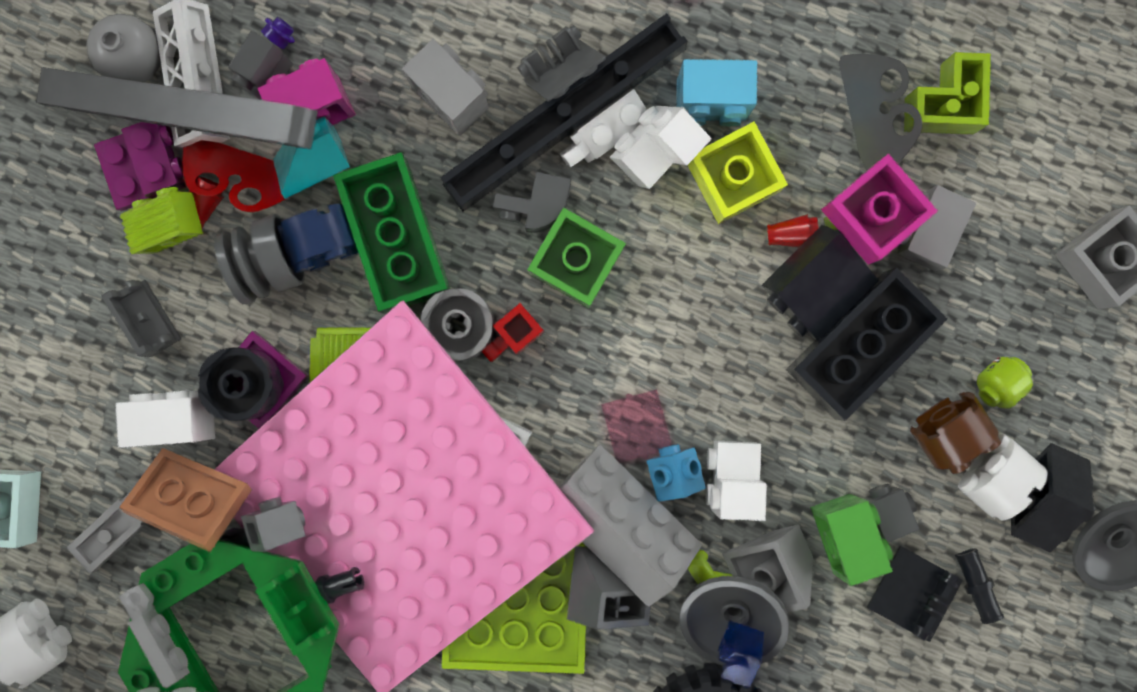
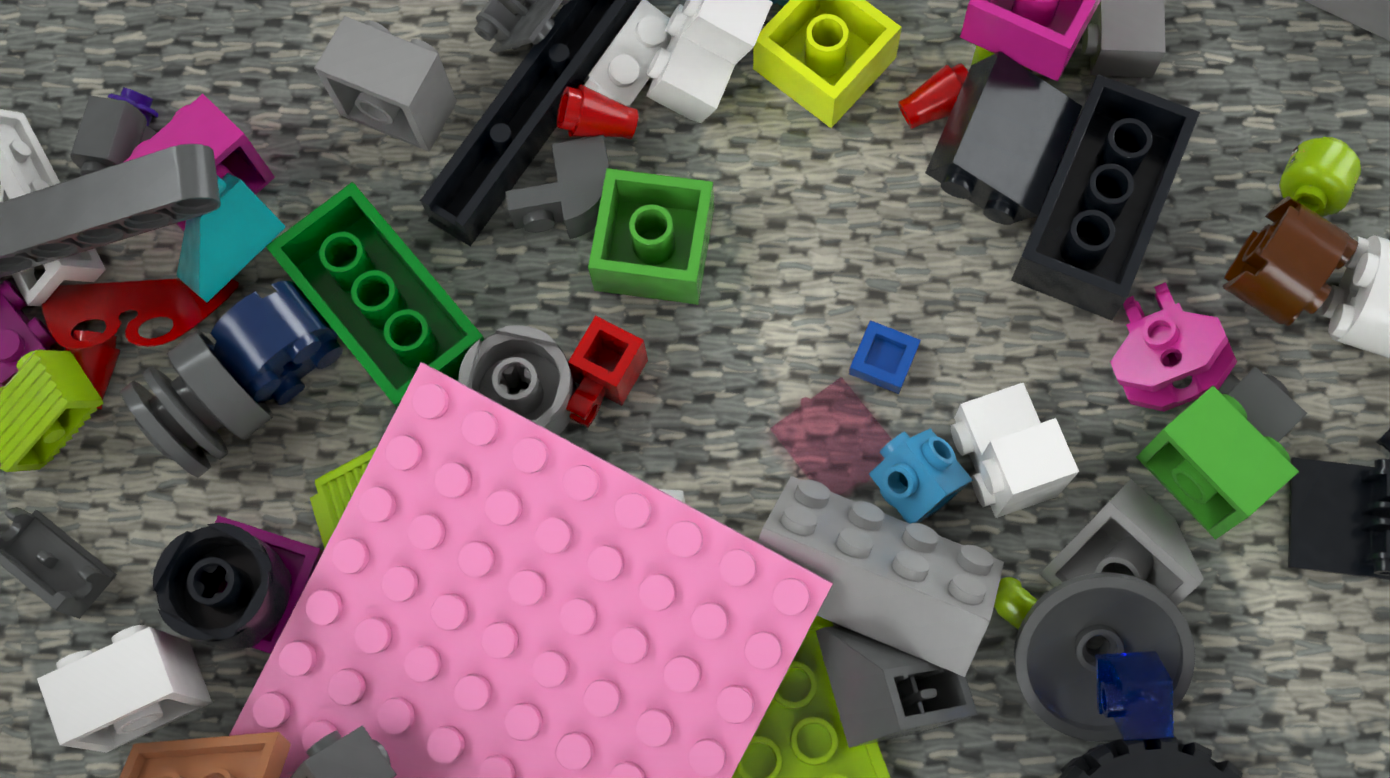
camera: 15 degrees left, 15 degrees down
(570, 163) = (594, 114): none -> red cone
(687, 389) = (884, 357): none -> blue plate
(857, 454) = (1168, 349): none -> dark pink hinge

